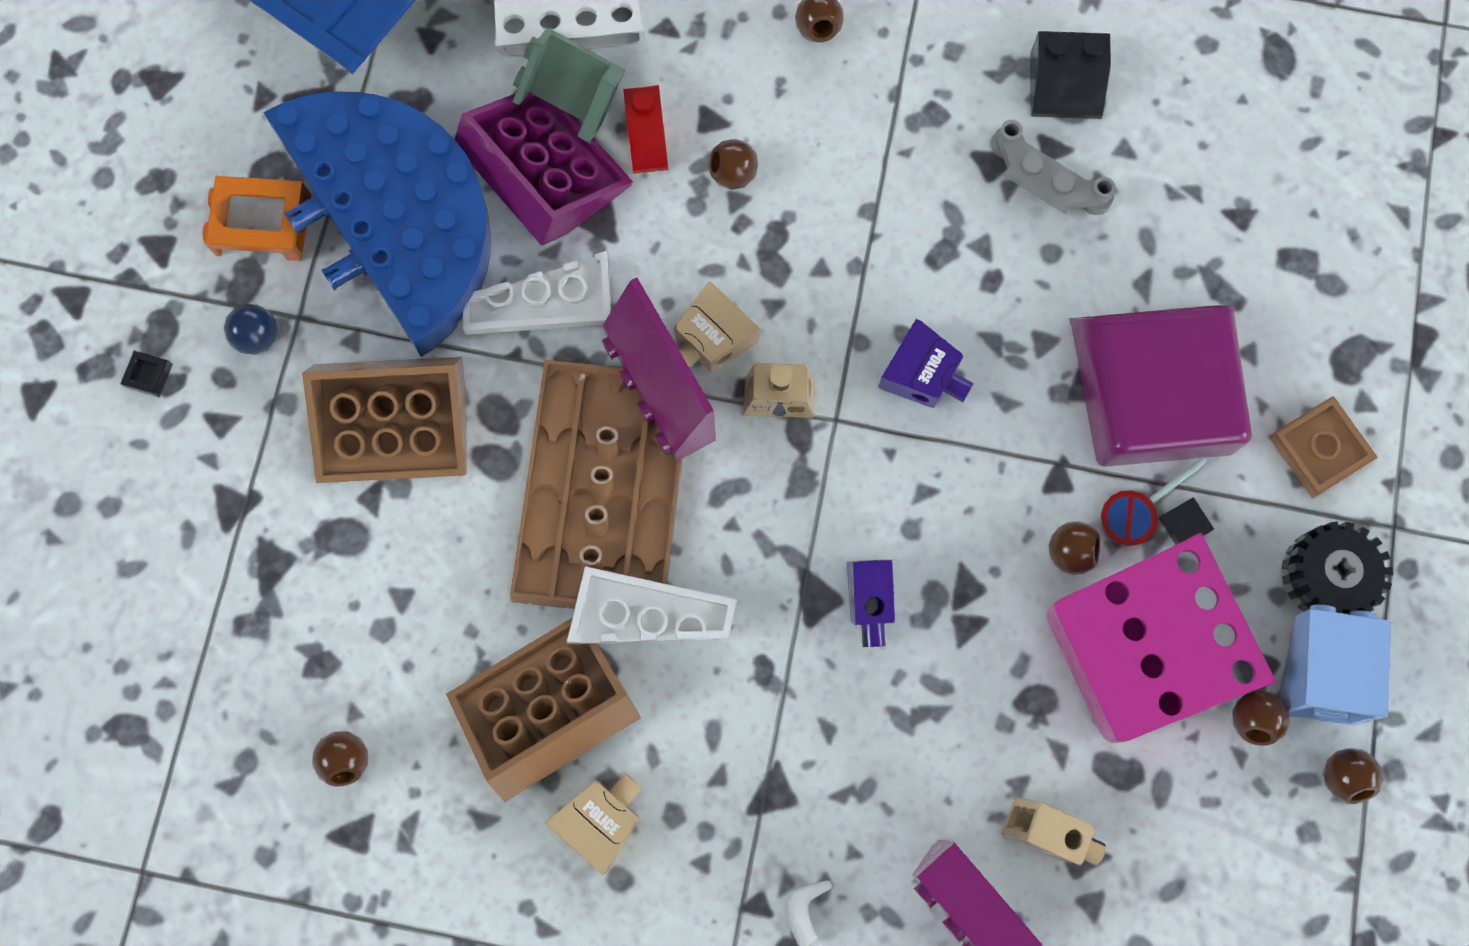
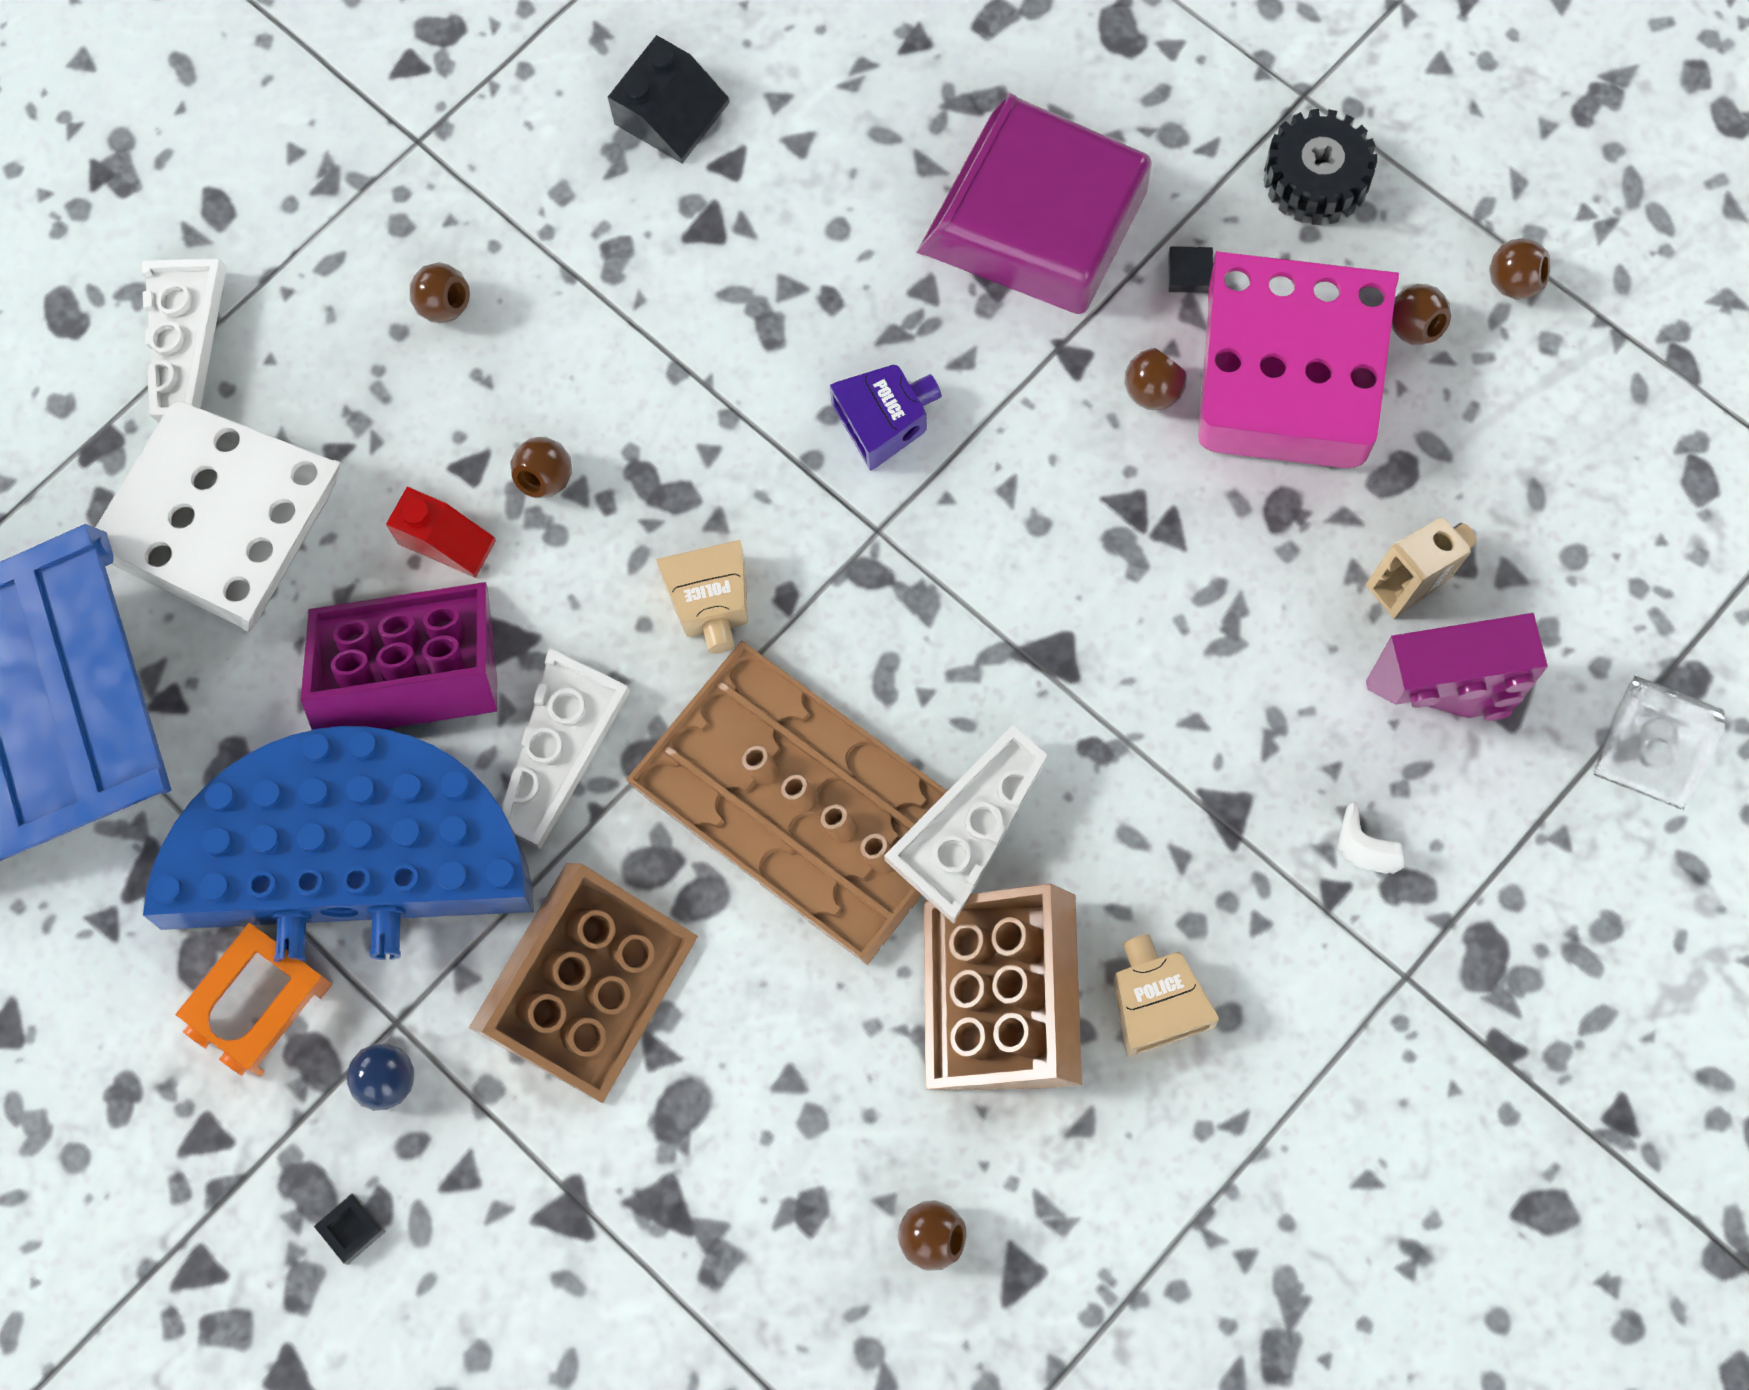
camera: 55 degrees left, 5 degrees down
(569, 79) = (339, 571): sand green panel -> none
(658, 374) = (729, 656): magenta slope -> none
(779, 391) = (819, 557): tan torso -> none
(870, 580) = (1088, 594): dark purple torso -> none
(1047, 177) = (758, 183): light grey plate -> none
(1131, 516) = (1151, 314): piece -> none
(1323, 447) = (1190, 107): medium nougat tile -> none
(1337, 666) = (1413, 215): light blue slope -> none

